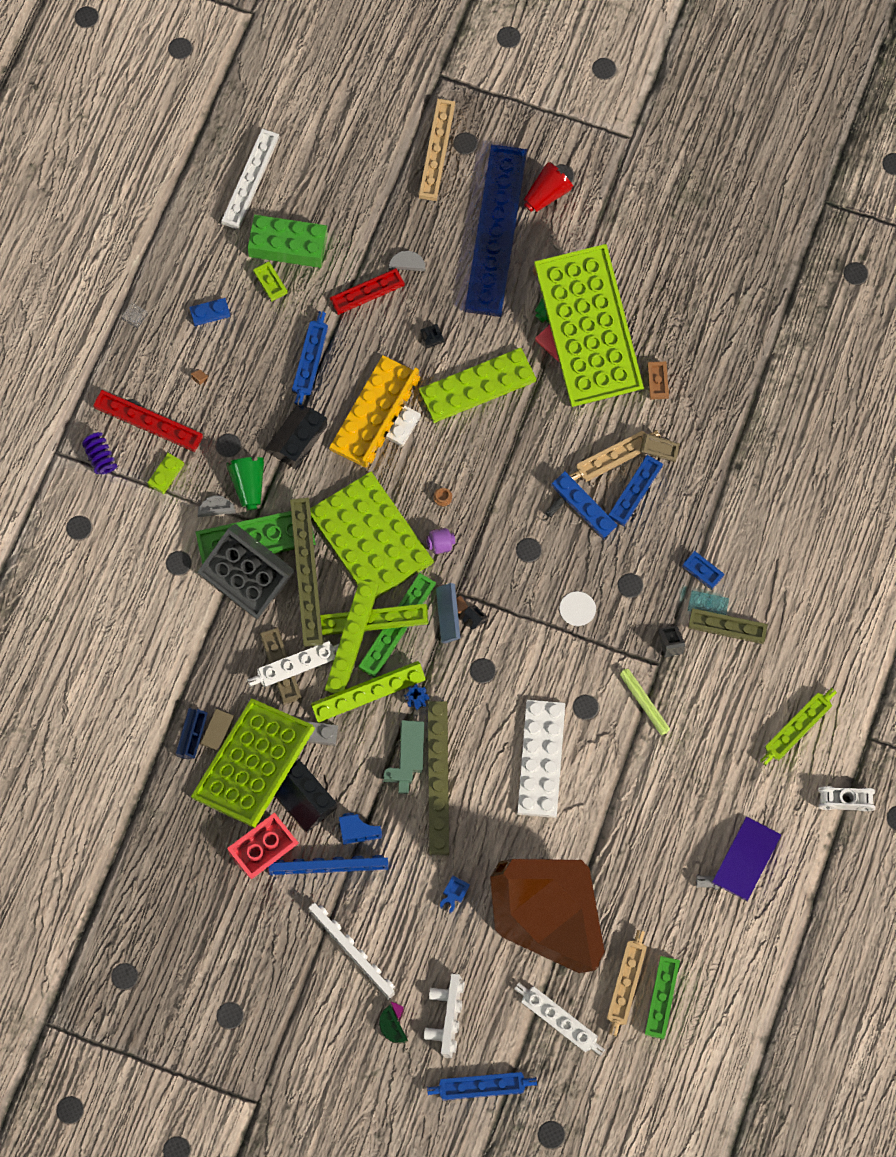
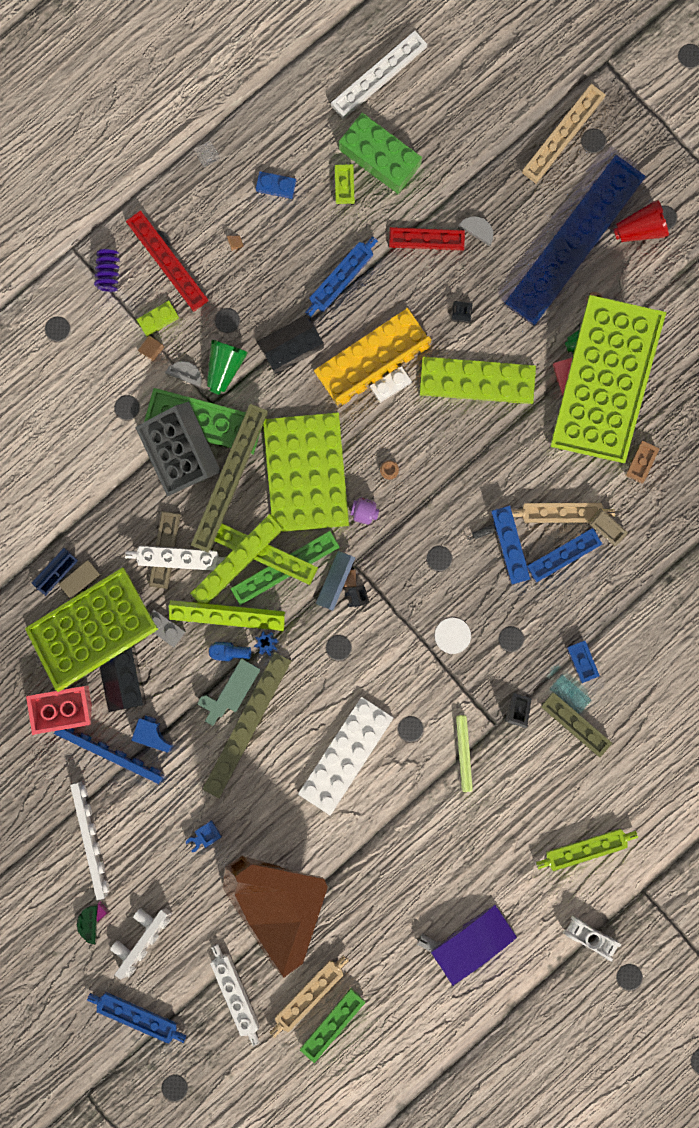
camera: 30 degrees right, 15 degrees up
(173, 501) = (151, 348): none -> medium nougat slope
(385, 722) = (227, 651): none -> blue arm

